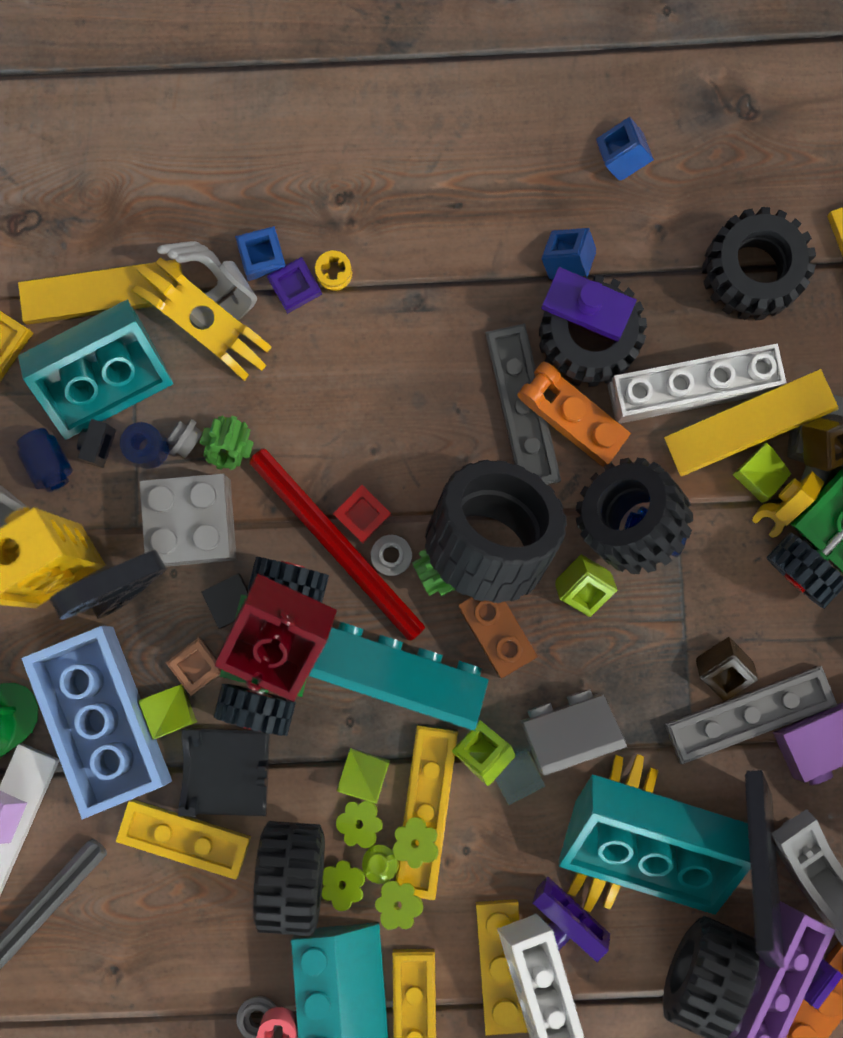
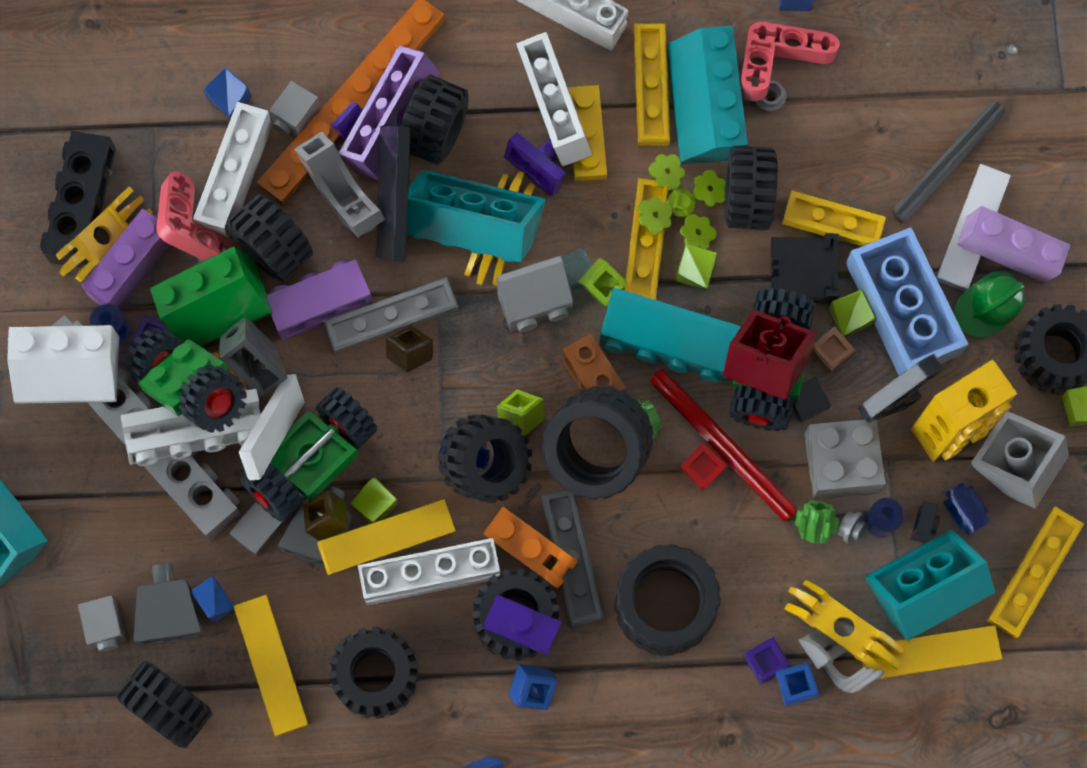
camera: 175 degrees right, 10 degrees down
(323, 263) = (742, 679): yellow bush -> none
(397, 567) = (673, 443): light grey plate -> none
(403, 296) = (681, 561): none -> black tyre
(795, 500) = (355, 473): yellow plate -> none

